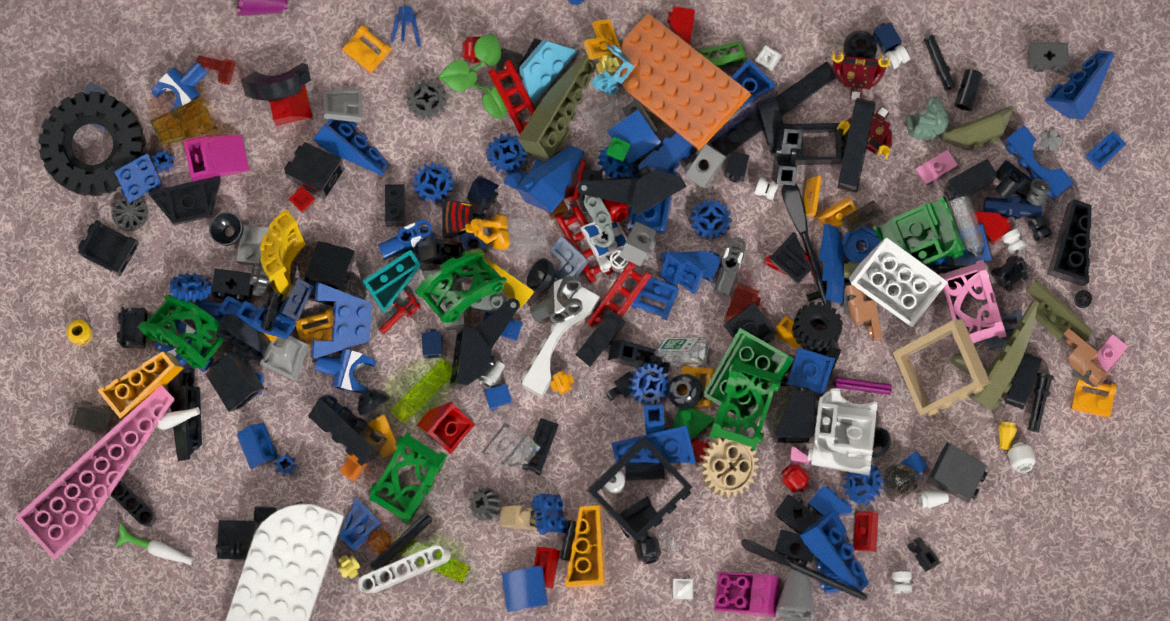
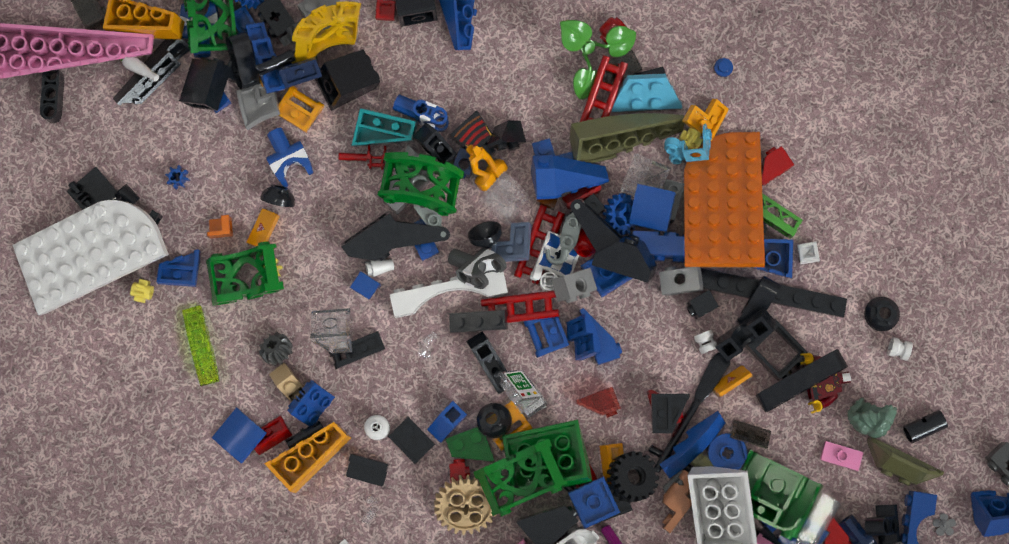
camera: 45 degrees right, 5 degrees up
(154, 547) = (35, 139): white piece -> none
(256, 445) = (175, 143): blue panel -> none
(347, 429) = (241, 198): black wedge -> none
(350, 321) = (324, 126): wing -> none
(379, 541) = (180, 297): clear orange gear -> none
(395, 205) = (441, 80): black brick -> none
(402, 541) = (193, 313): black axle -> none
(413, 569) = (179, 338): white beam -> none
(419, 101) = (537, 26): dark grey gear -> none
(422, 391) = (319, 226): clear neon green slope -> none
(426, 185) = (491, 96): blue gear -> none
(432, 344) = (362, 201): dark blue brick -> none
(446, 426) = (309, 267): red slope -> none
(510, 160) = (560, 119): blue gear -> none
(513, 288) = (458, 220): yellow sticker -> none
(562, 382) = (418, 322): light orange gear -> none
(618, 148) = (631, 204): green plate -> none
(621, 387) = (460, 371): black plate -> none
(648, 550) = (349, 500): black head -> none
(649, 384) = (472, 385): blue gear -> none
(668, 508) = (385, 423): black window -> none
(671, 443) = (435, 442): blue wing -> none
(704, 219) = (635, 311): blue gear -> none
(727, 275) = (610, 373): dark grey connector -> none
(753, 322) = (591, 423): black plate -> none
(836, 212) = (734, 410): light orange slope -> none
(858, 72) = (860, 331): dark red torso -> none
(886, 37) = (908, 327): dark blue brick -> none
(943, 70) = (925, 386): black pin -> none
(970, 181) = (853, 493): black brick -> none

